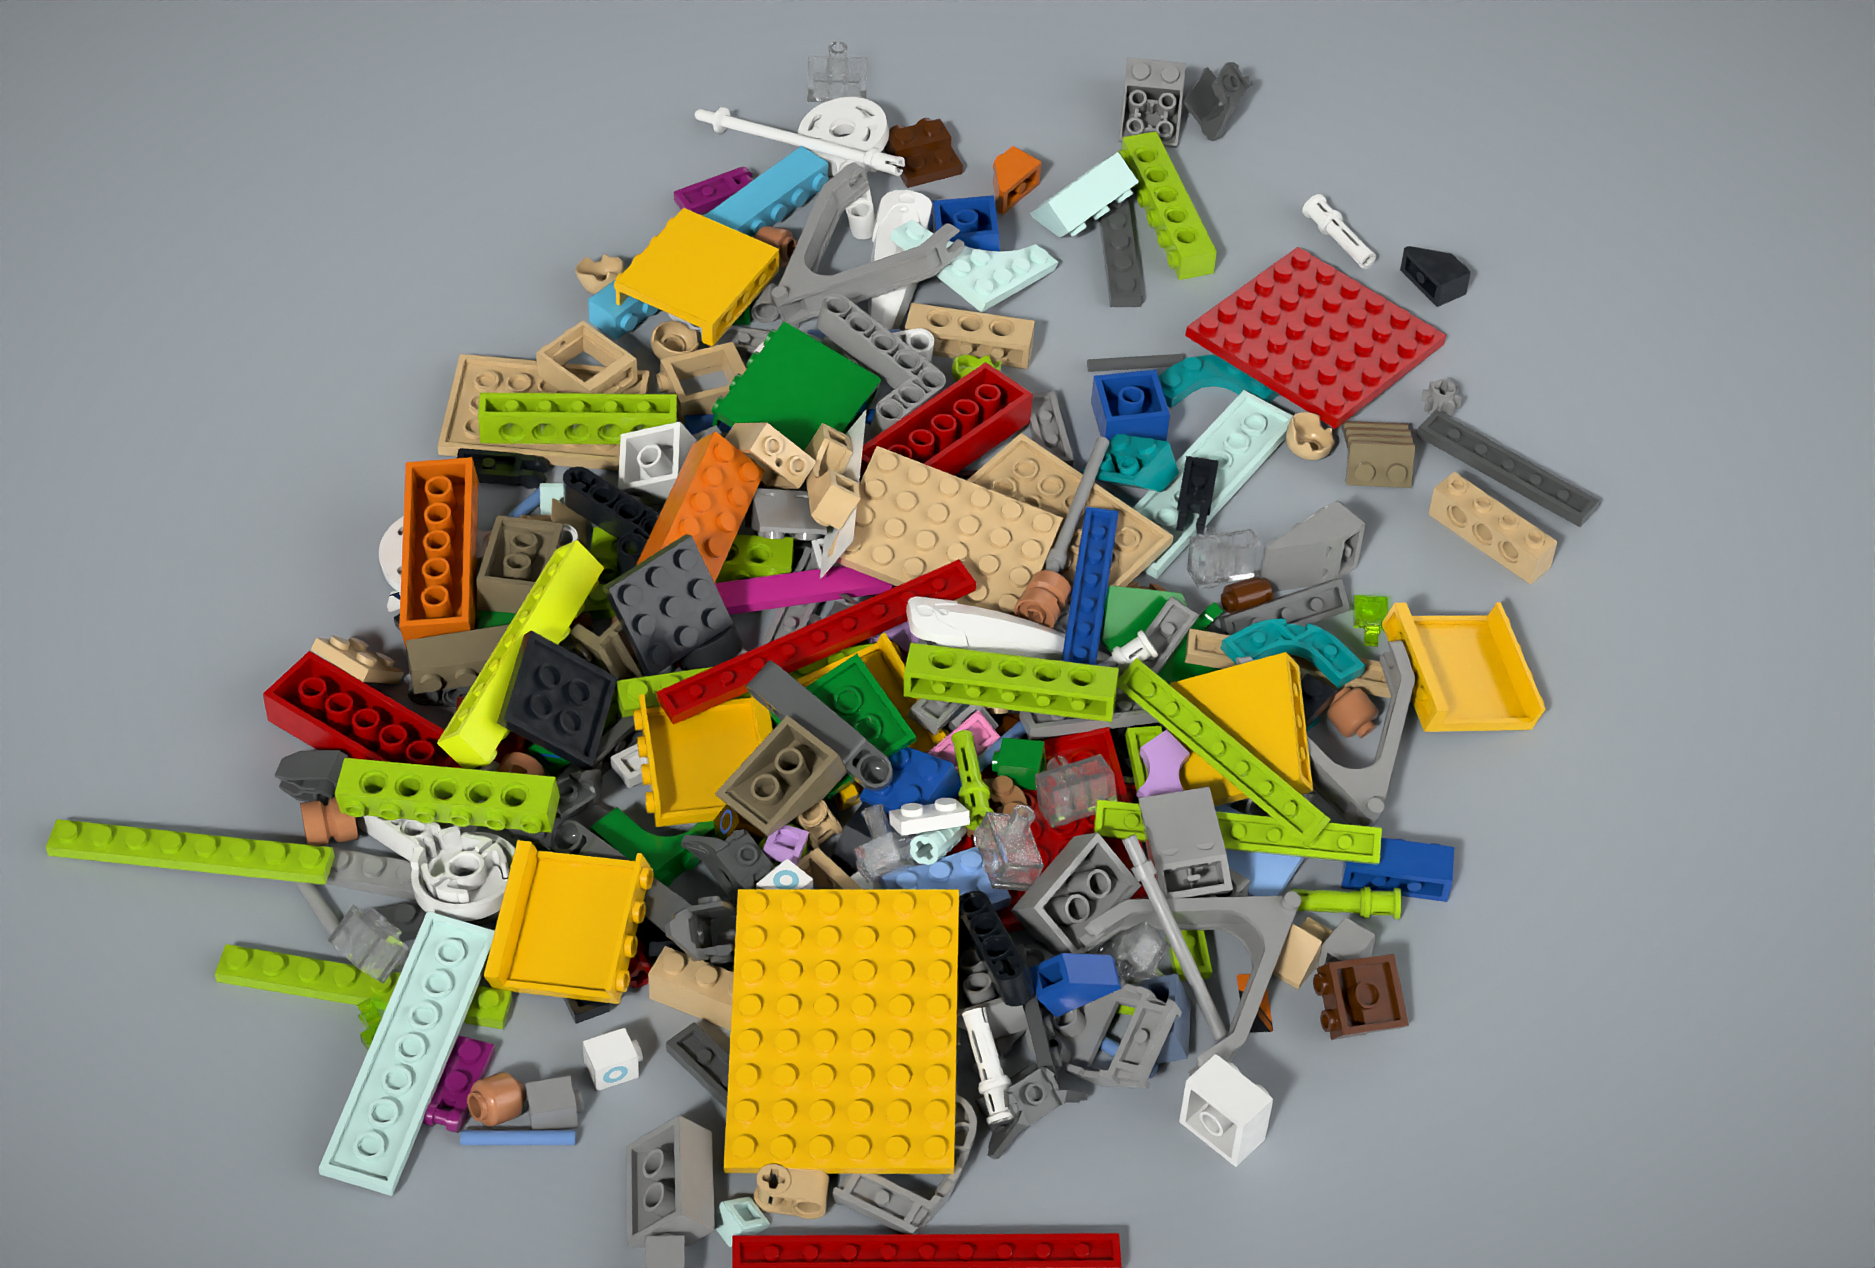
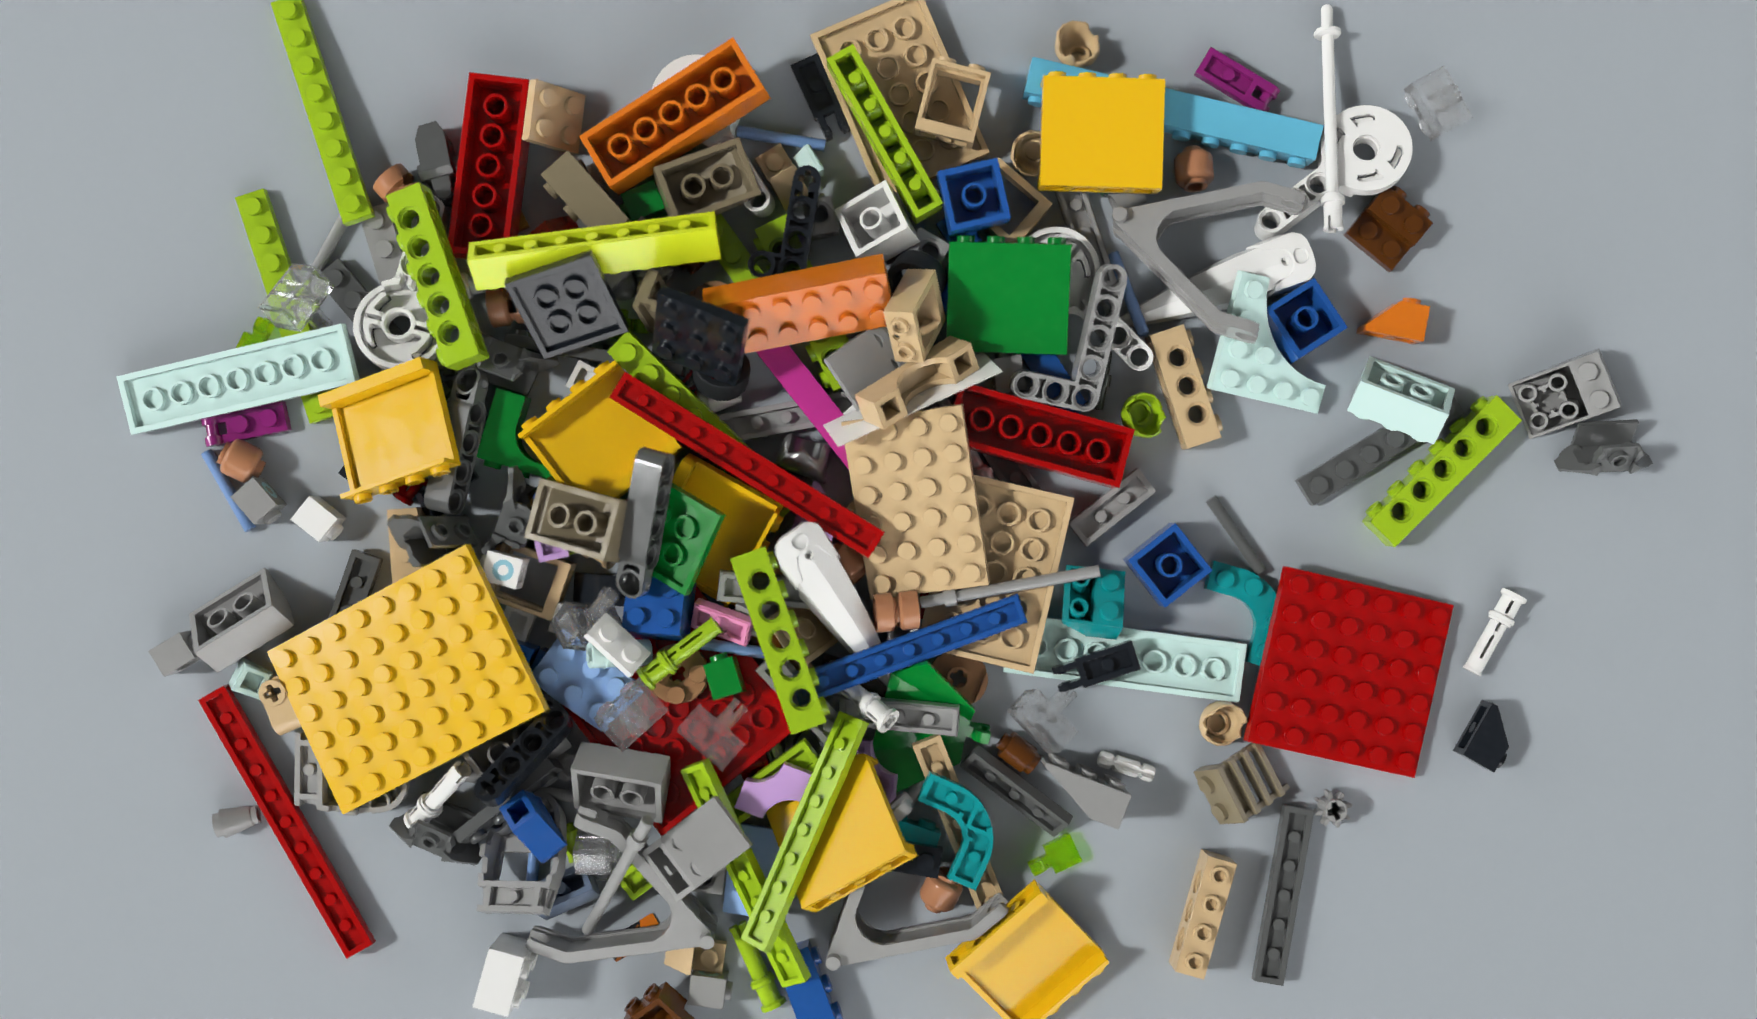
camera: 65 degrees right, 40 degrees up
(691, 371) = (973, 197): none -> blue brick

